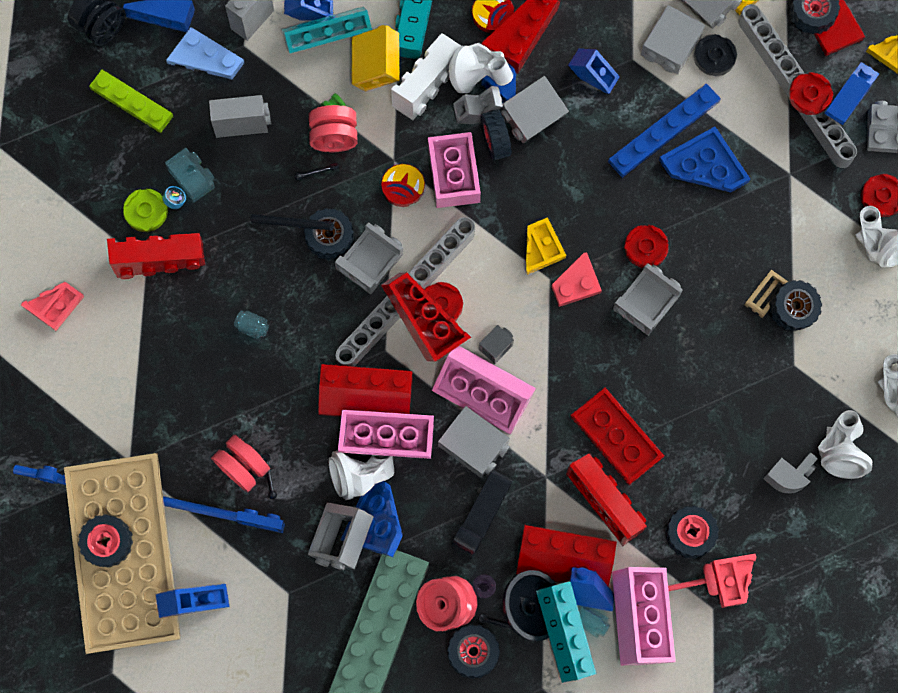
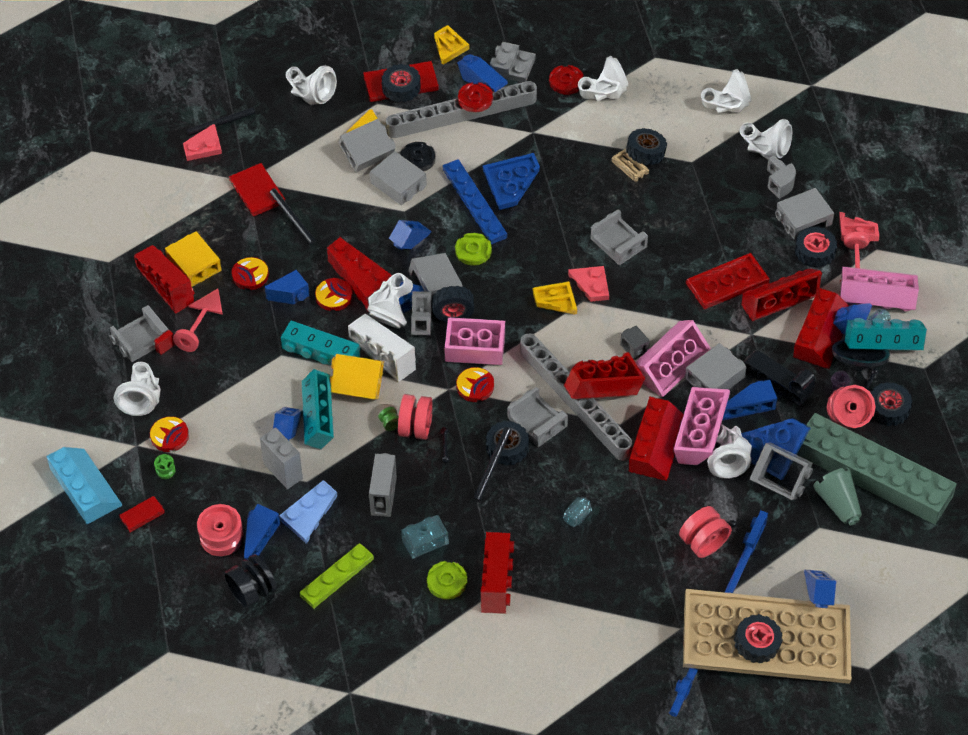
camera: 75 degrees left, 20 degrees down
(54, 305) = (522, 662): coral wing -> none
(174, 197) = (442, 553): tile -> none
(324, 609) = (840, 495): none -> sand green cone
(445, 491) = (753, 399): none -> blue slope
(594, 144) = (473, 249): none -> lime tile
(646, 246) = (571, 232): red tile -> none
(740, 509) = (803, 212): none -> light grey panel

